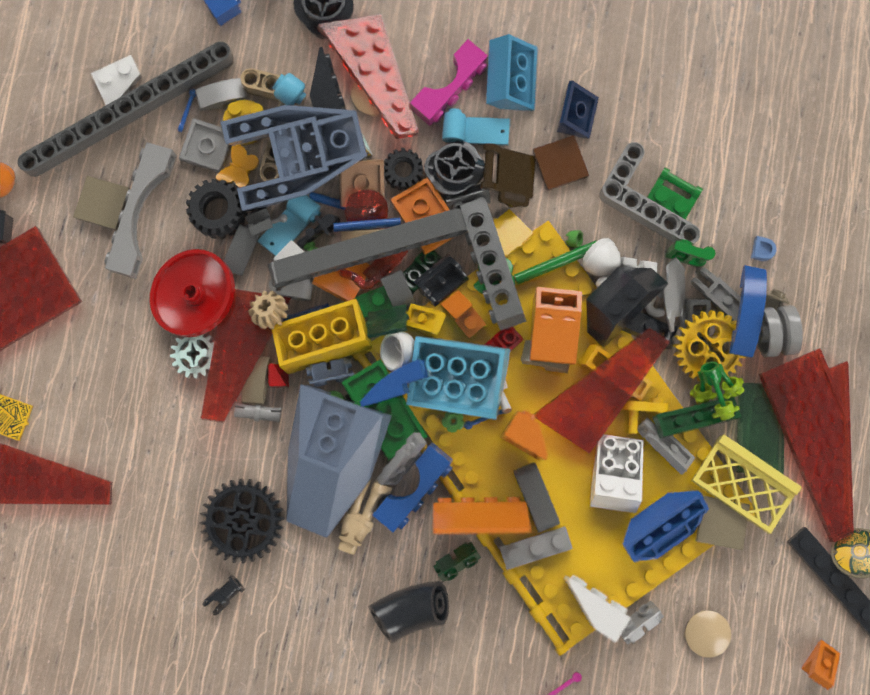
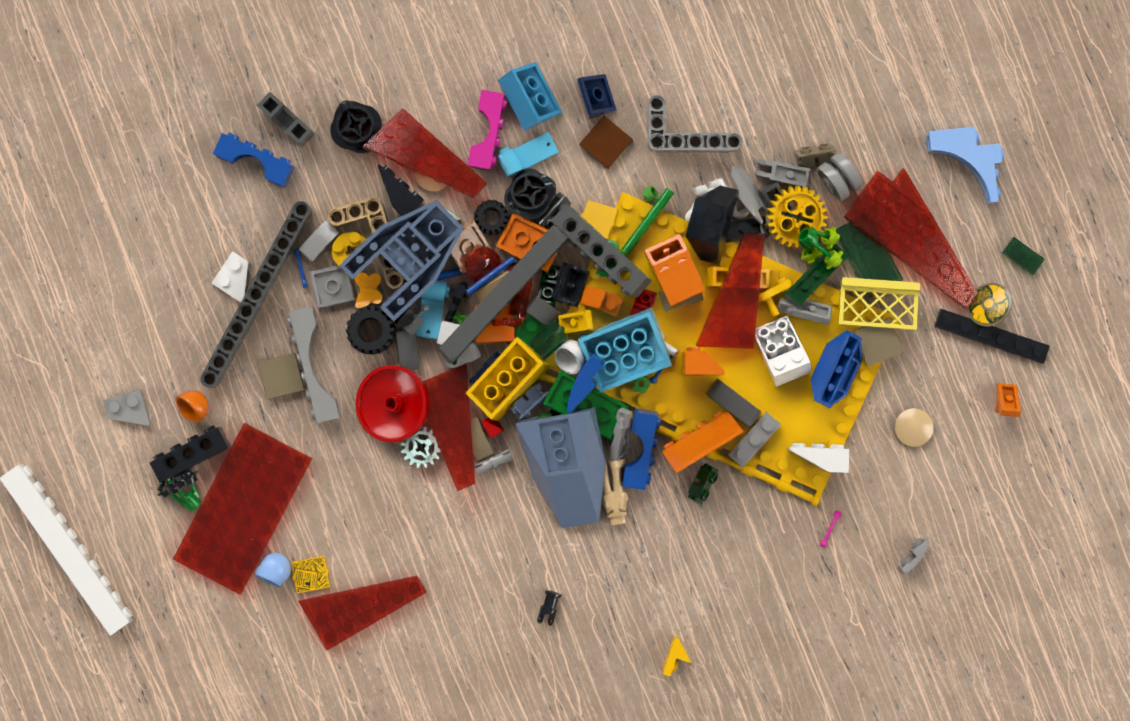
camera: 30 degrees left, 5 degrees up
(230, 518) = (520, 549): black gear -> none
(268, 310) = (451, 383): tan gear -> none
(289, 89) = (373, 209): medium azure head -> none
(411, 610) = (690, 537): black brick -> none
(513, 175) = (577, 174): dark brown piece -> none
(602, 258) = (679, 198): white hat -> none
(648, 616) = (862, 440): light grey hinge -> none
(671, 199) = (704, 122): green plate -> none
(690, 254) = (737, 157): green plate -> none
(750, 311) = (810, 174): blue slope -> none
(763, 249) = (795, 118): medium blue tile -> none

